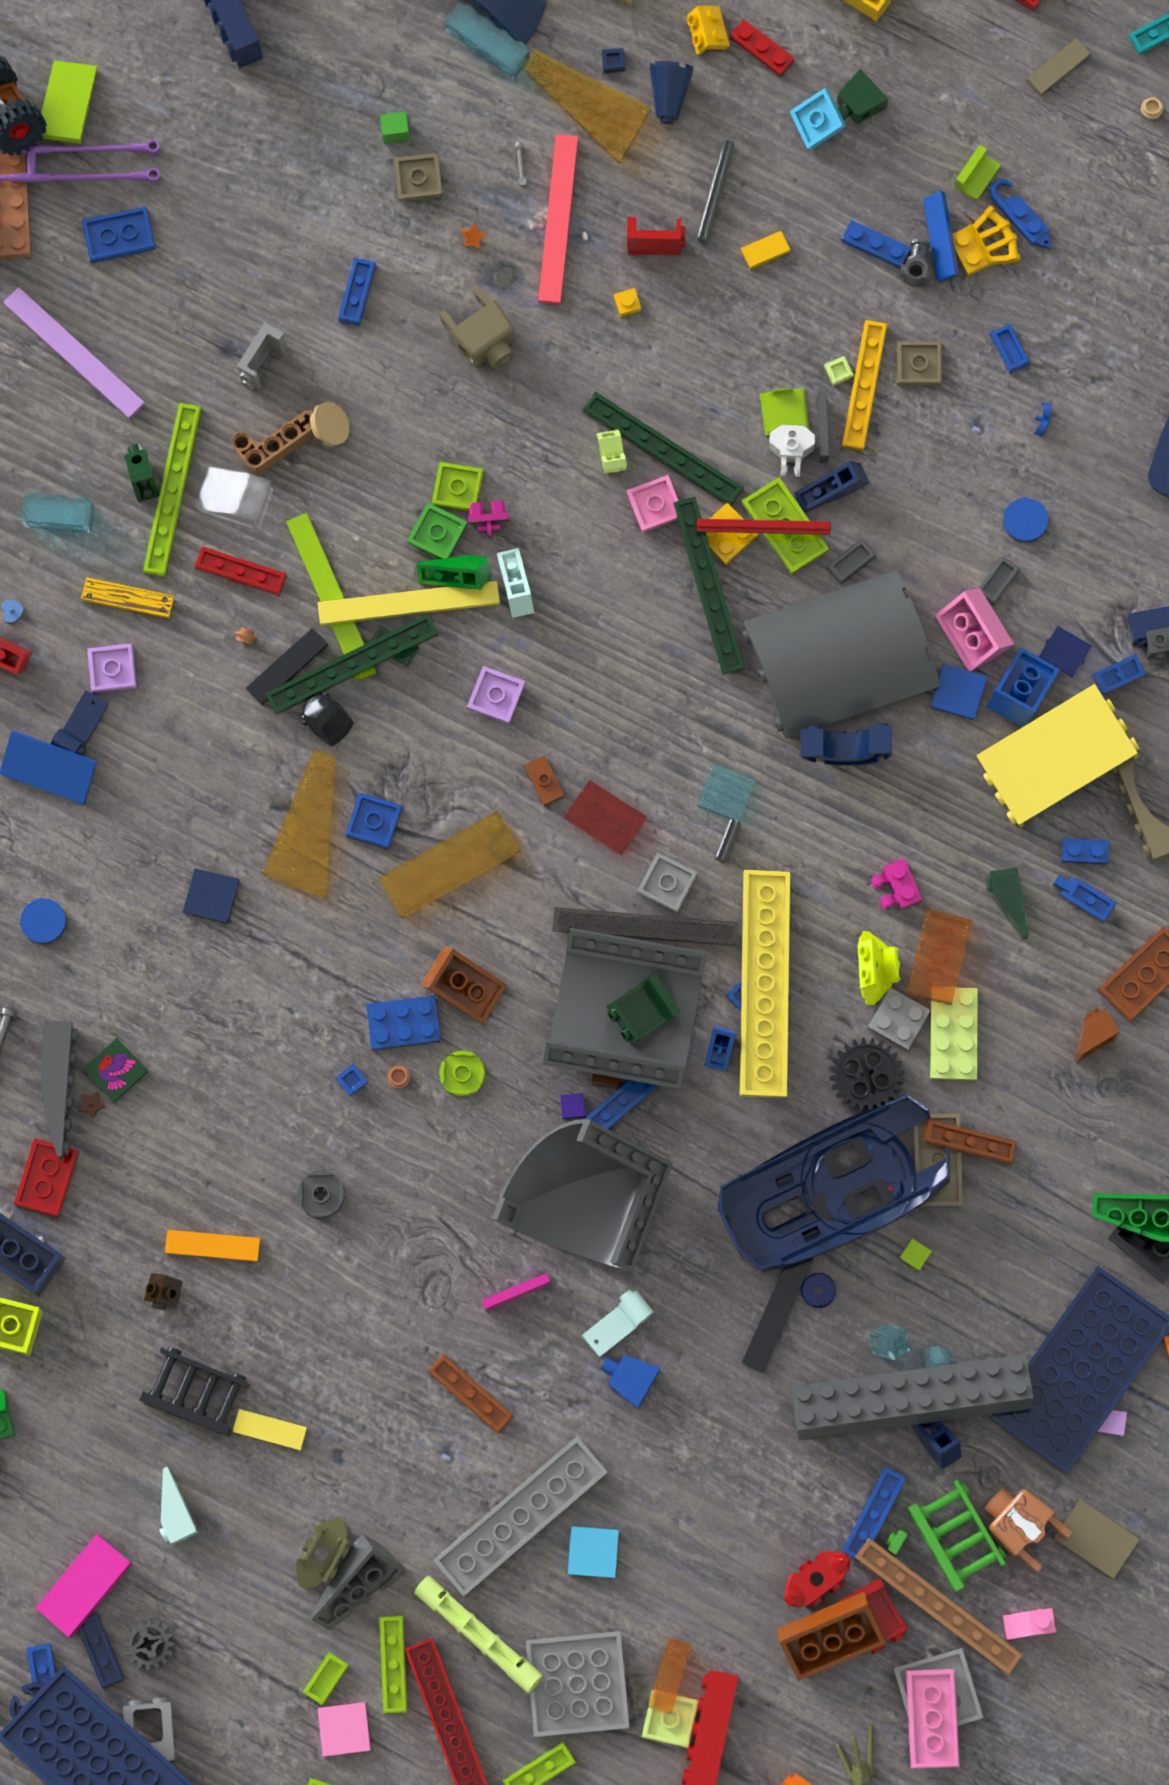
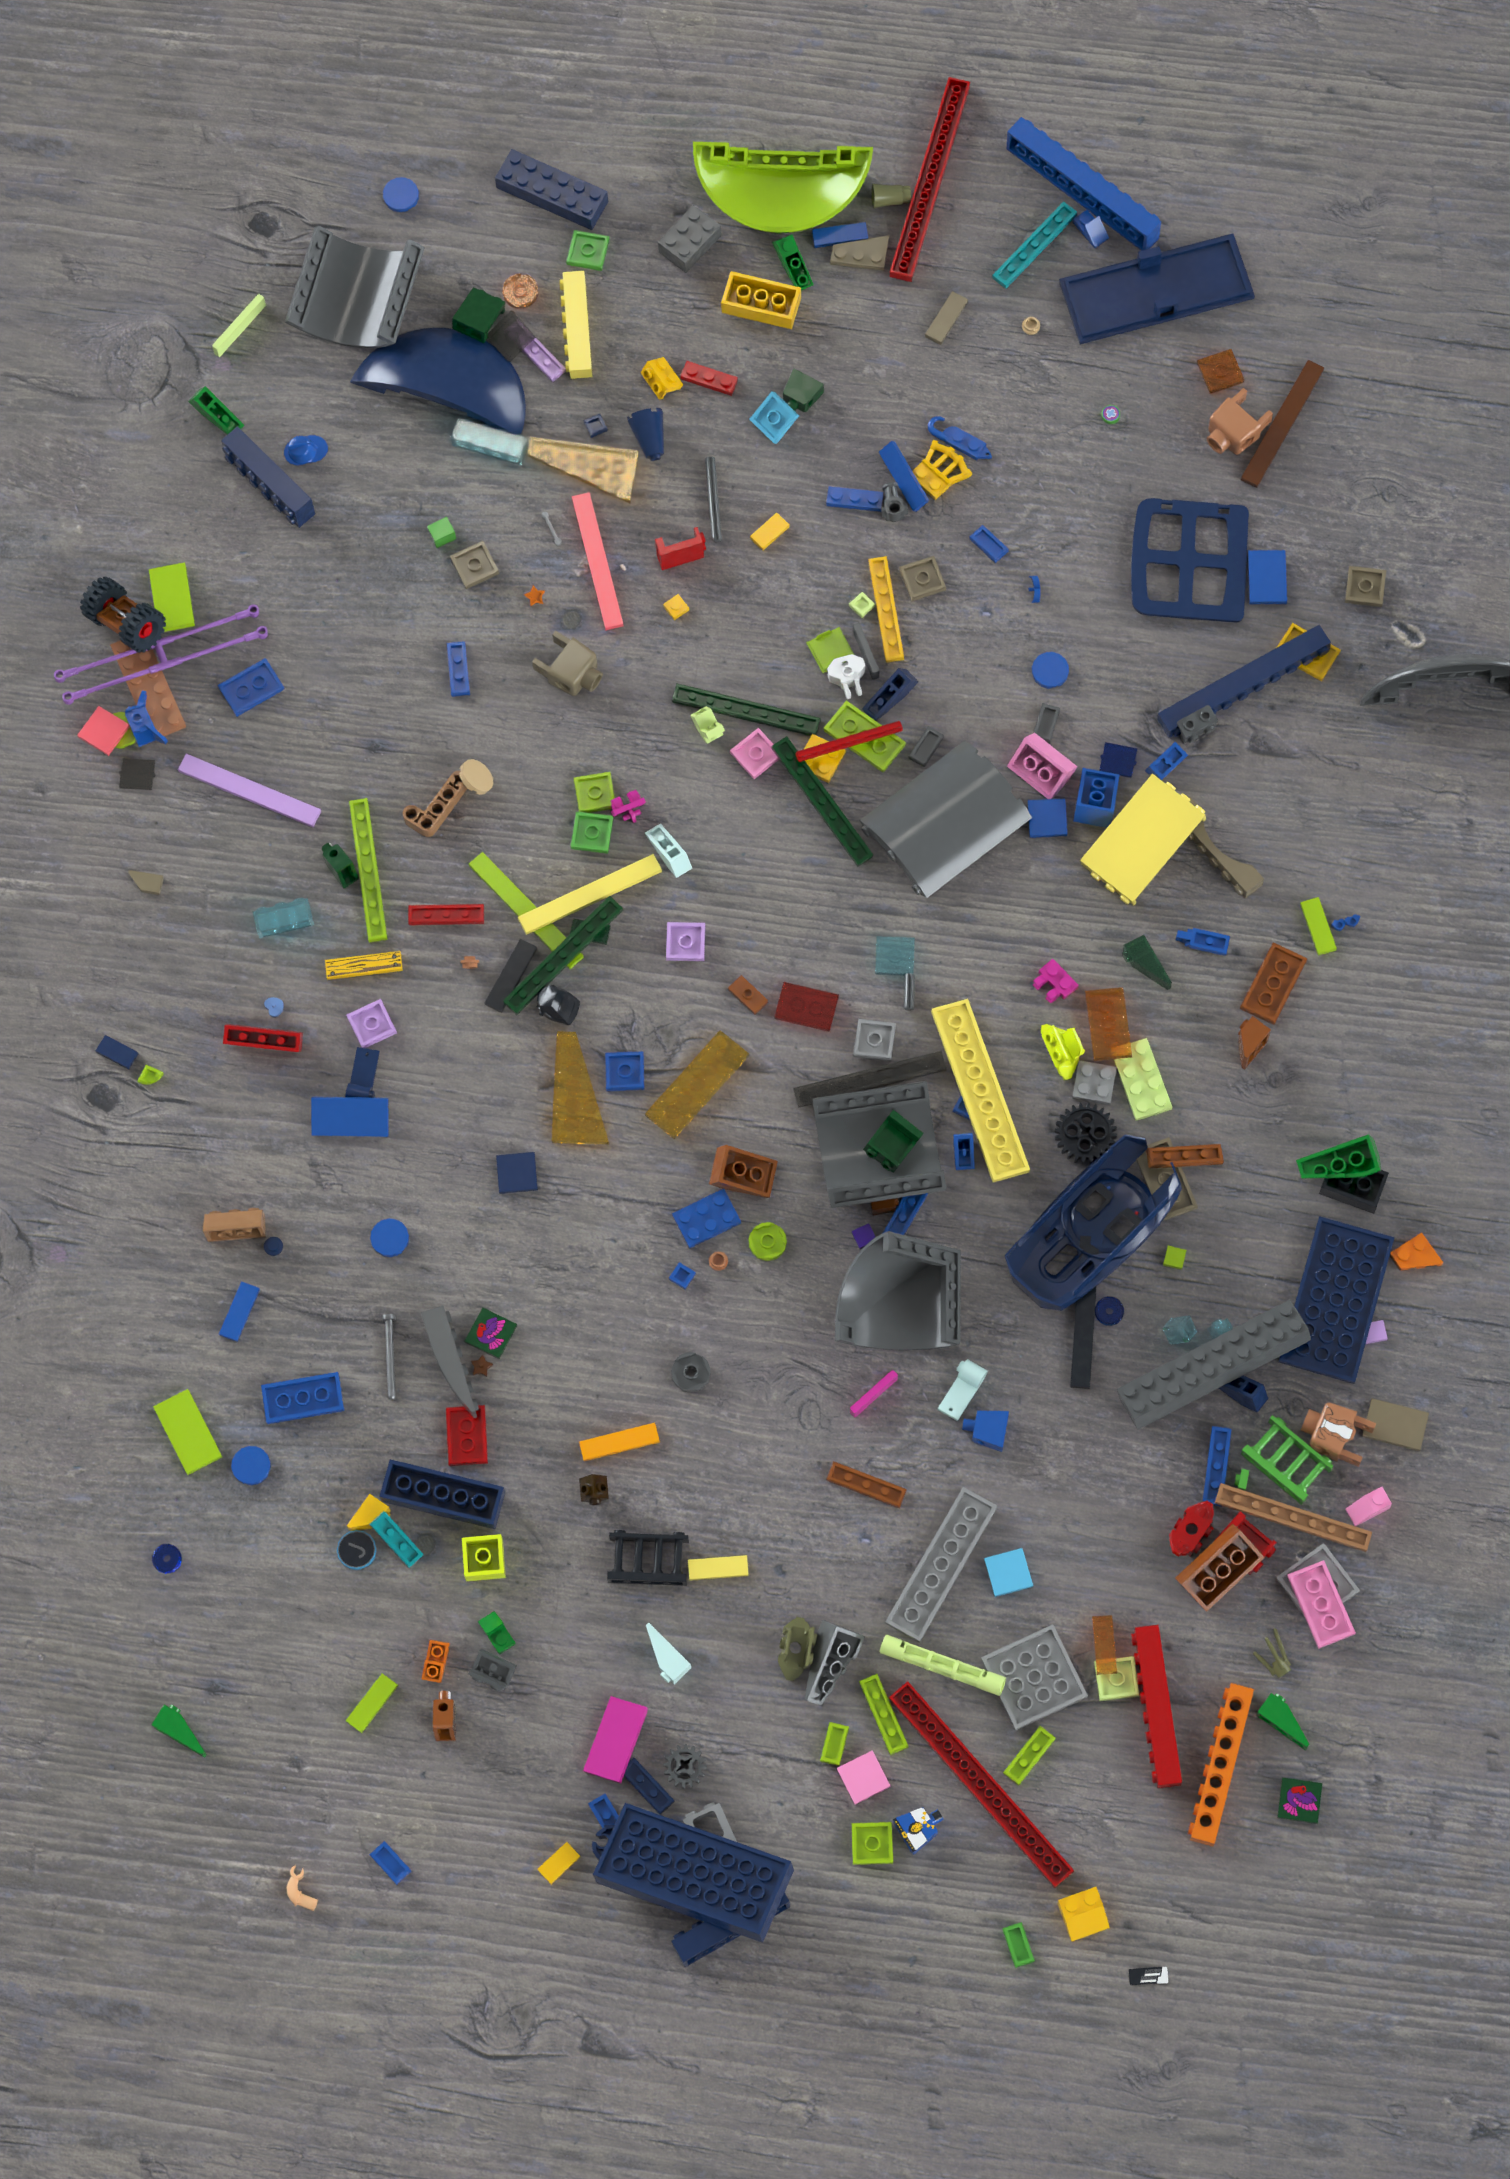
camera: 20 degrees left, 5 degrees down
(235, 496) = (420, 858): clear slope -> none
(264, 341) = (404, 726): light grey panel -> none
(457, 572) = (619, 857): green slope -> none
(846, 748) = (978, 889): dark blue brick -> none
(977, 174) = (913, 419): lime panel -> none
(1085, 851) = (1191, 906): blue plate -> none

